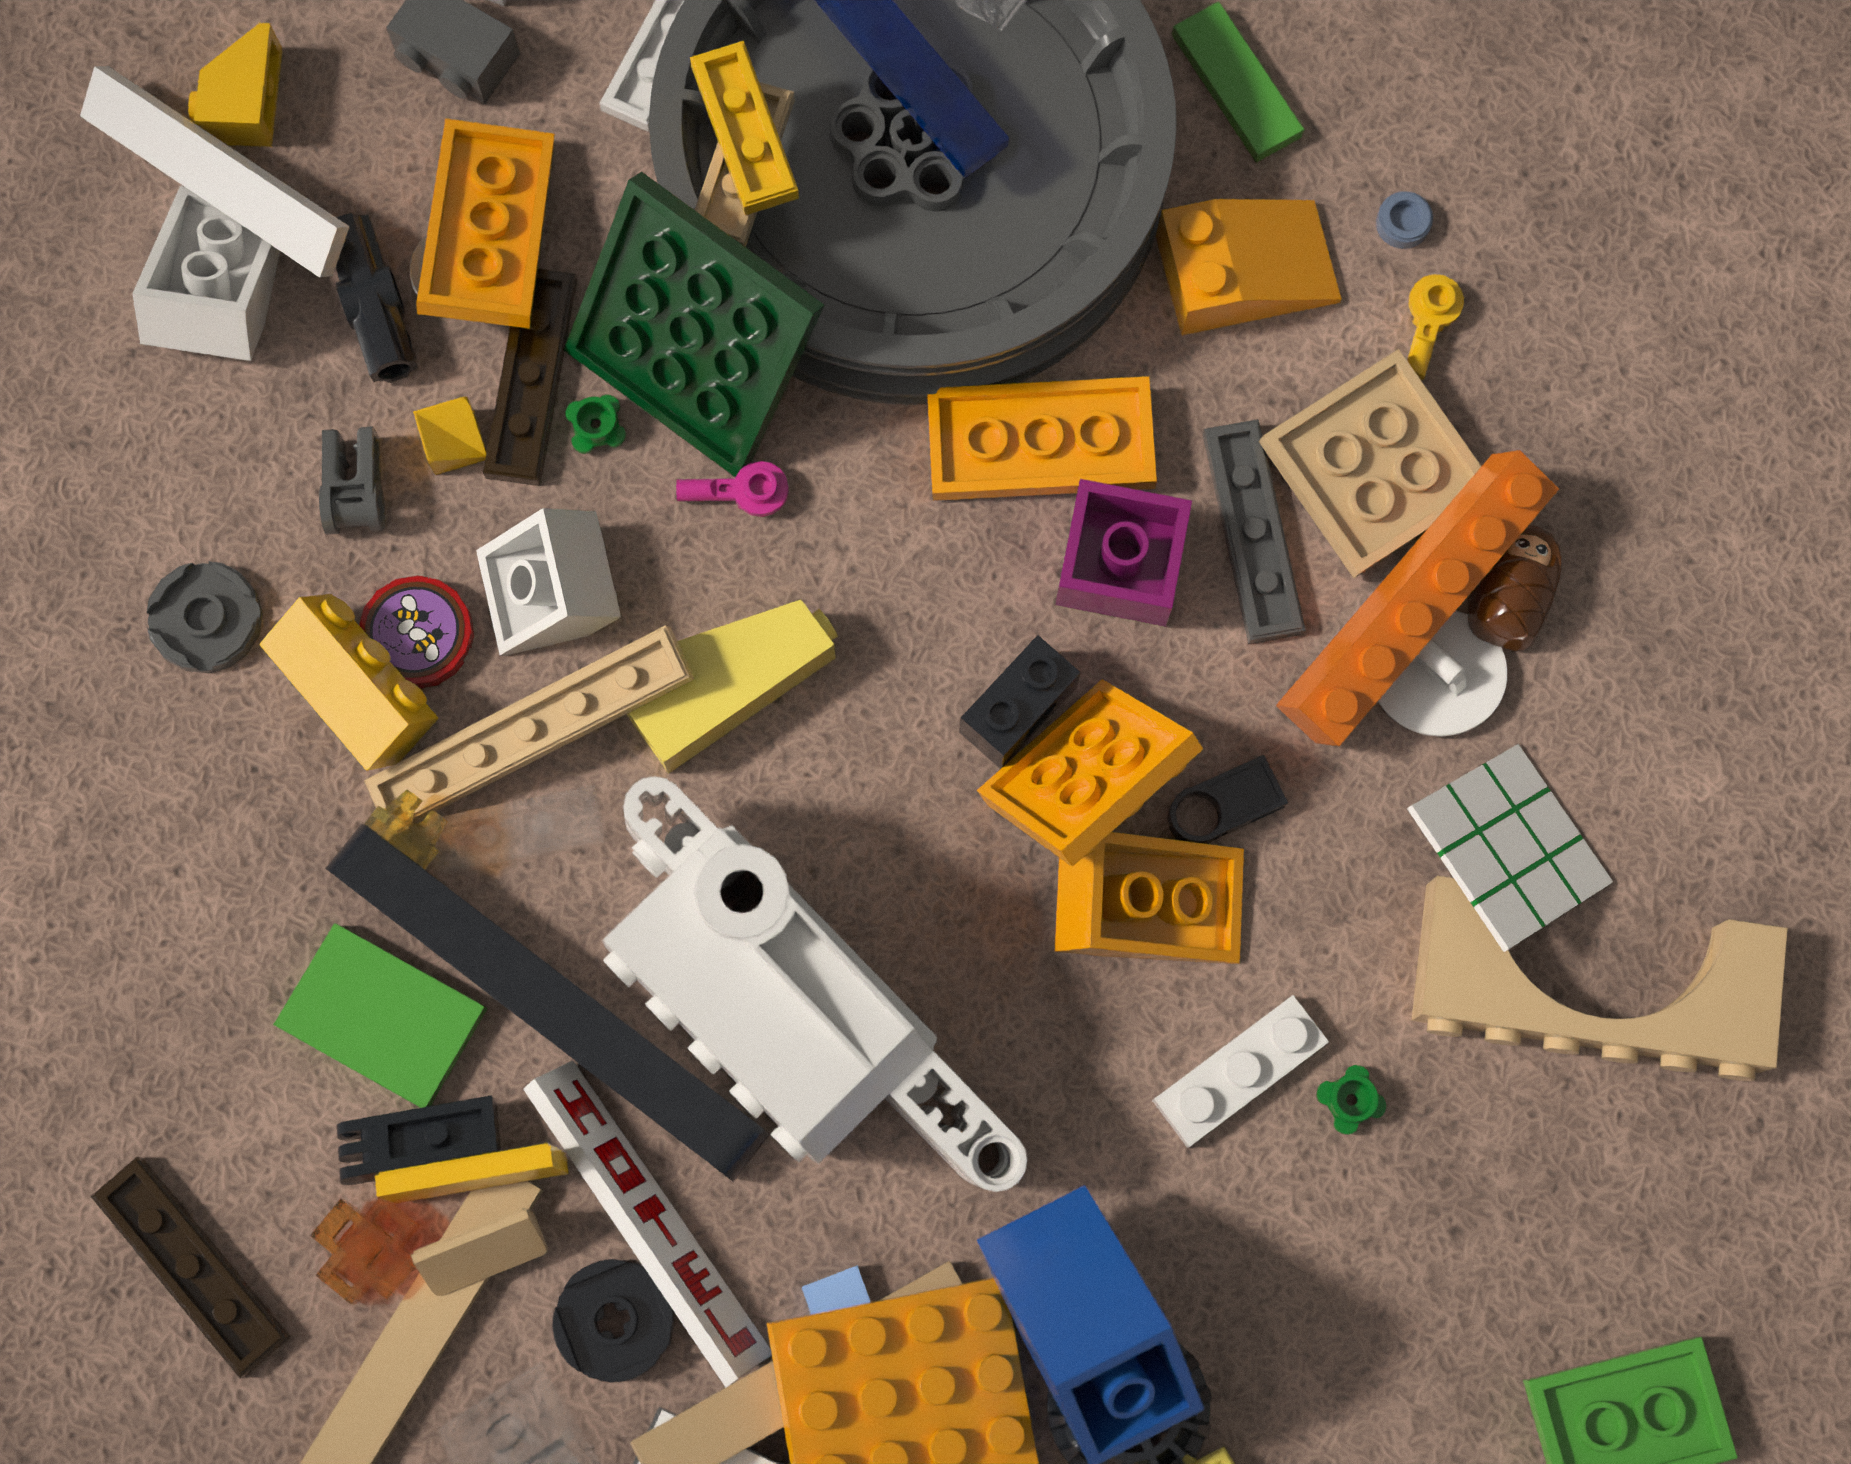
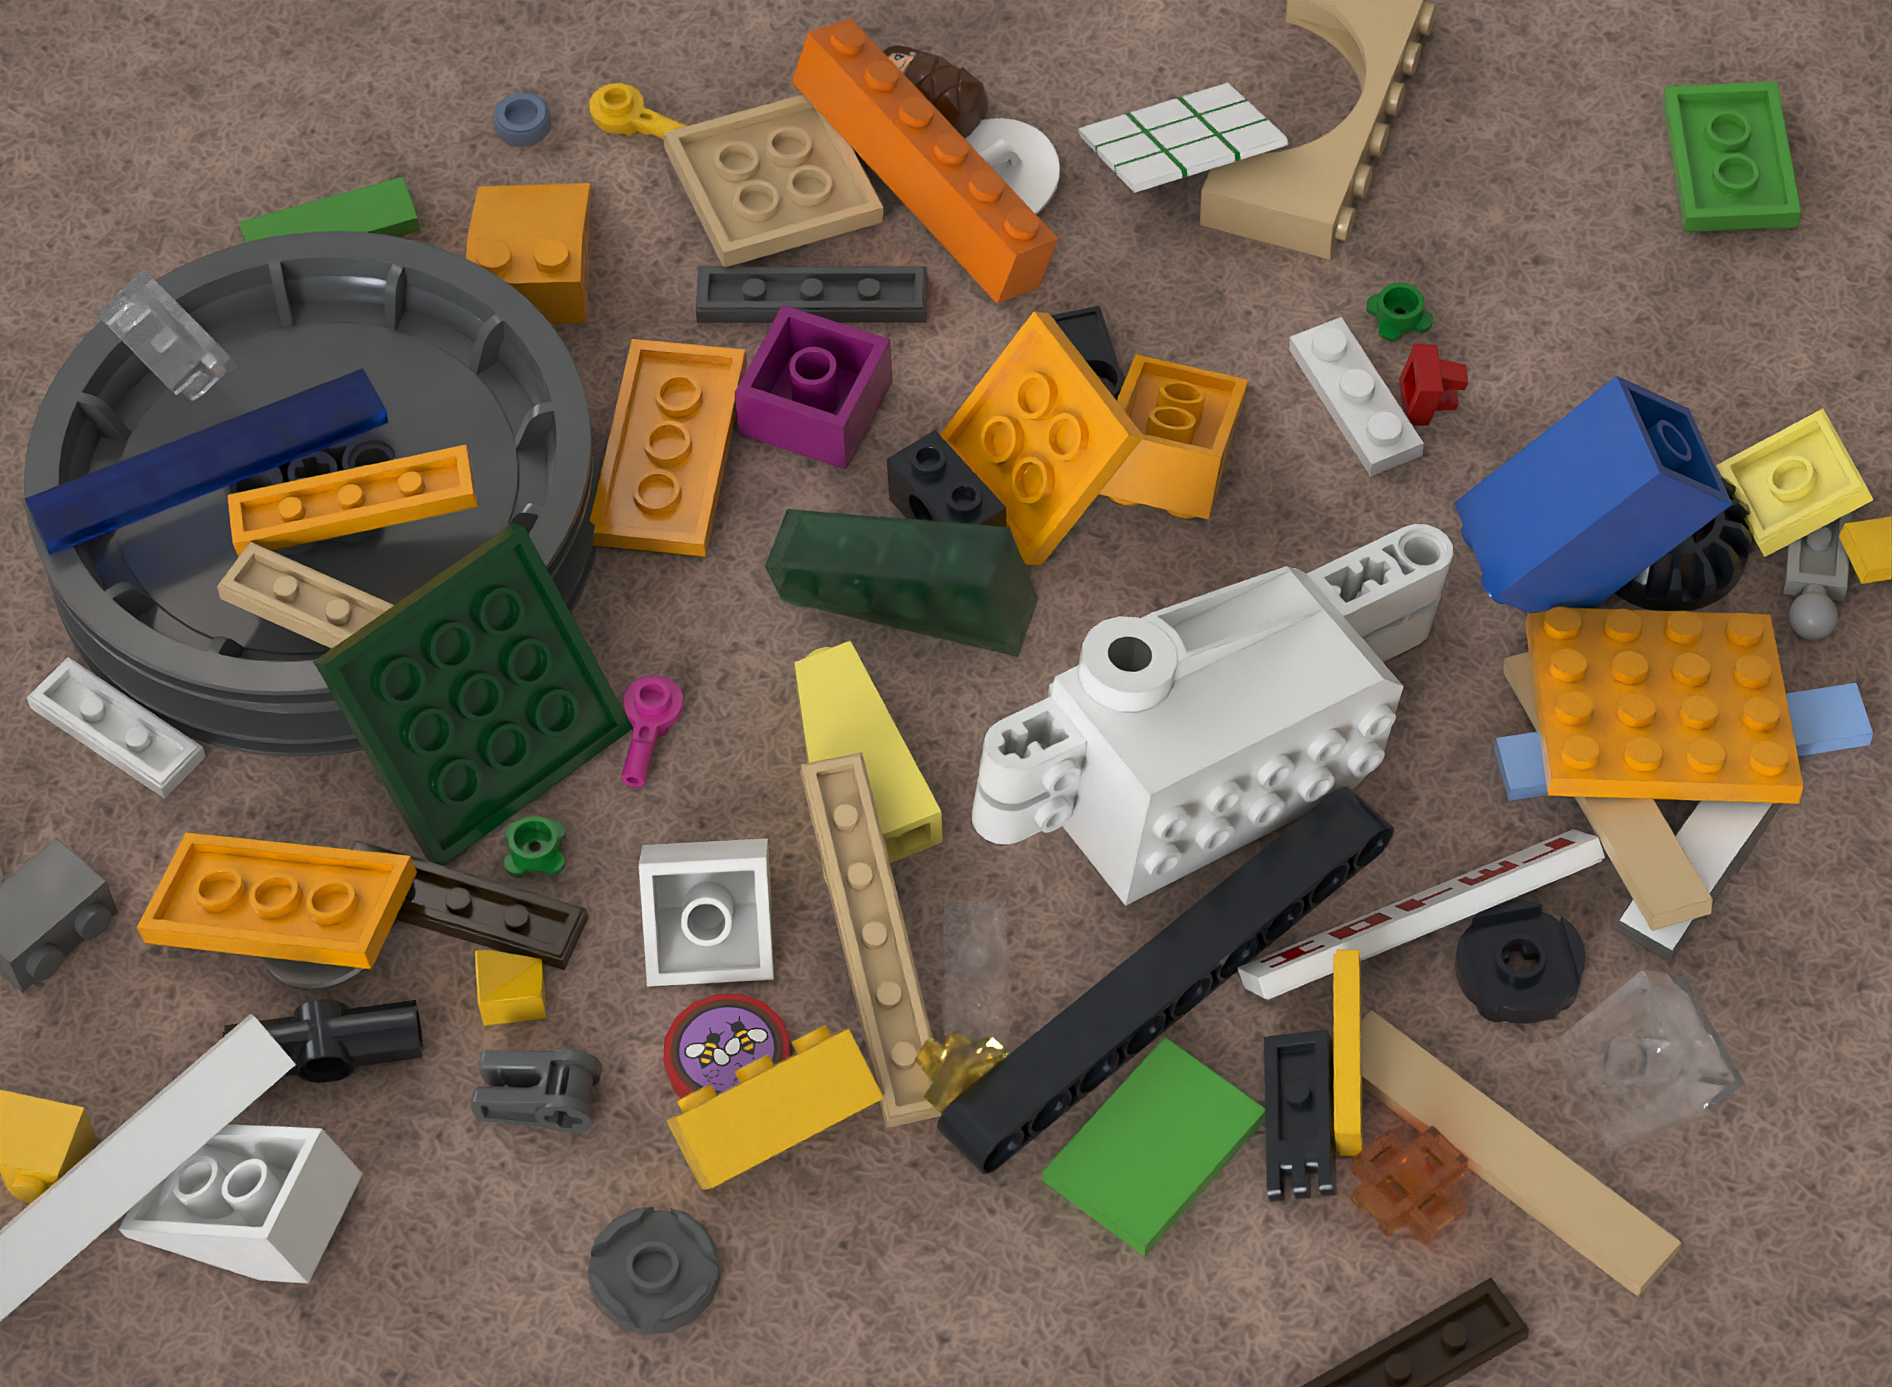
camera: 75 degrees left, 20 degrees down
(480, 1252) = (1428, 1061): tan slope -> none
(744, 128) = (281, 583): yellow tile -> none
(857, 167) = (353, 500): none -> light orange plate
(922, 680) = (907, 575): none -> clear green wedge
(1258, 1140) = (1430, 384): none -> red tile

